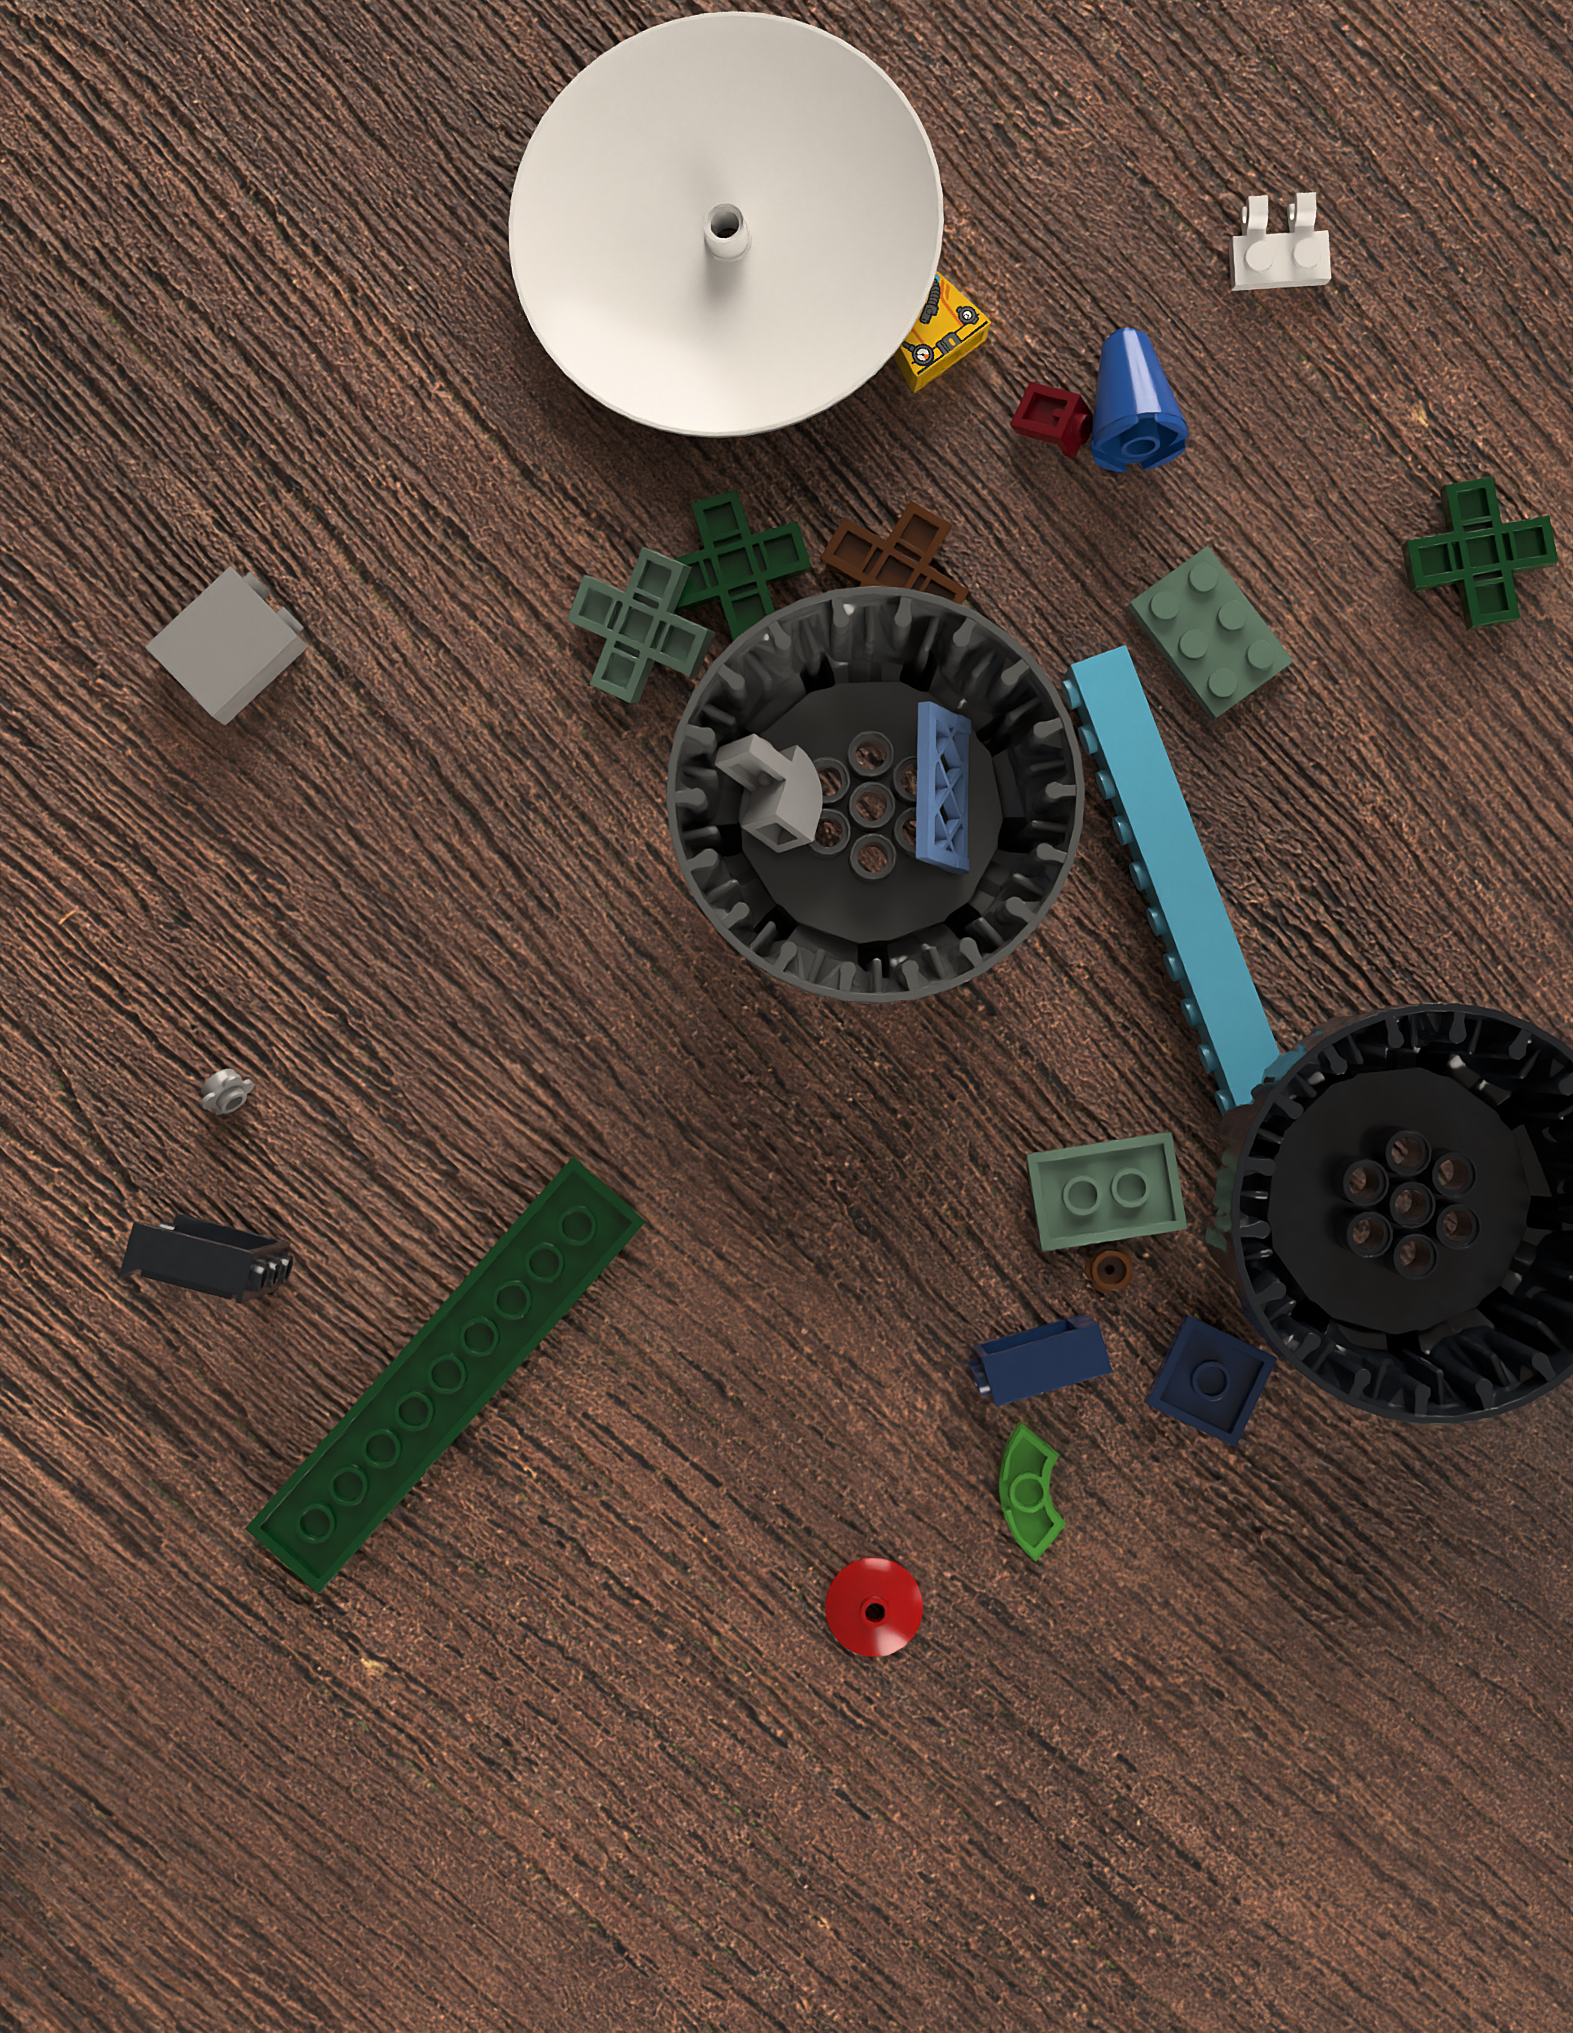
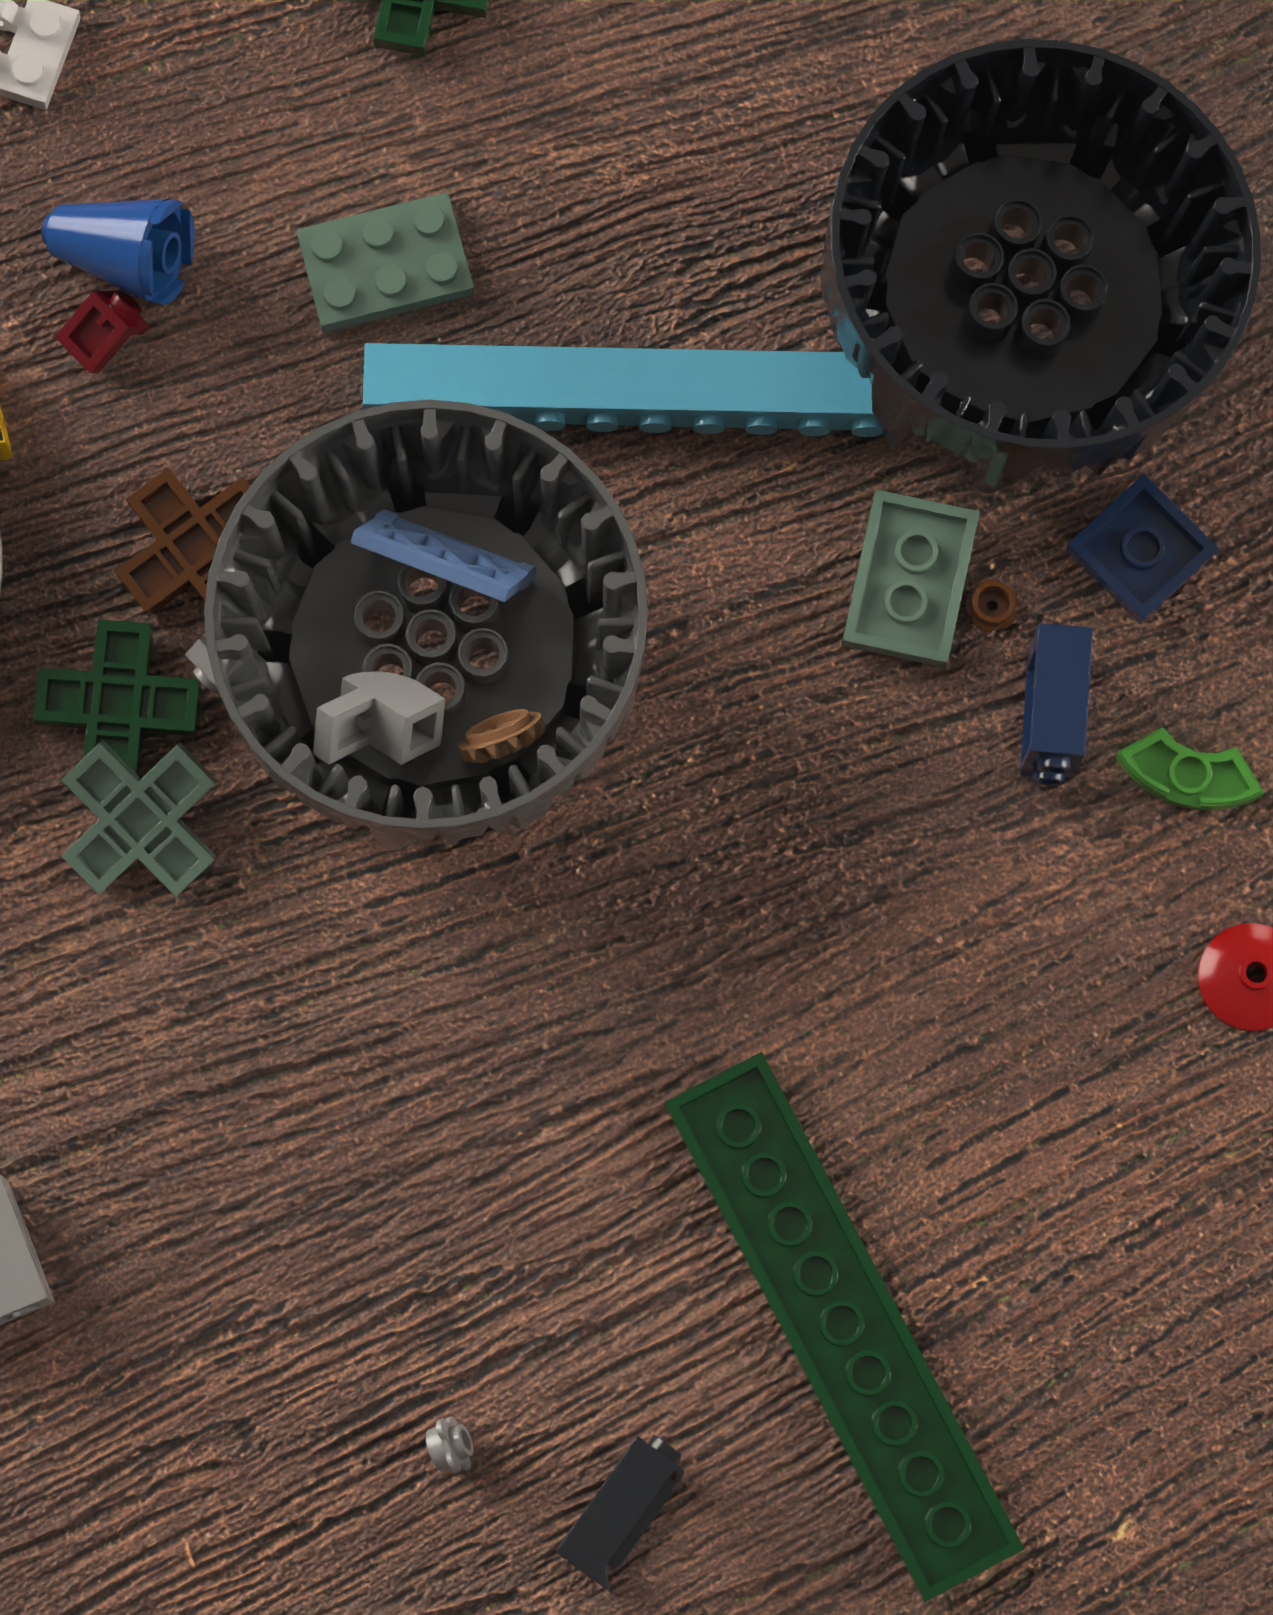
camera: 65 degrees left, 10 degrees down
(804, 902) = (501, 735): none -> medium nougat gear

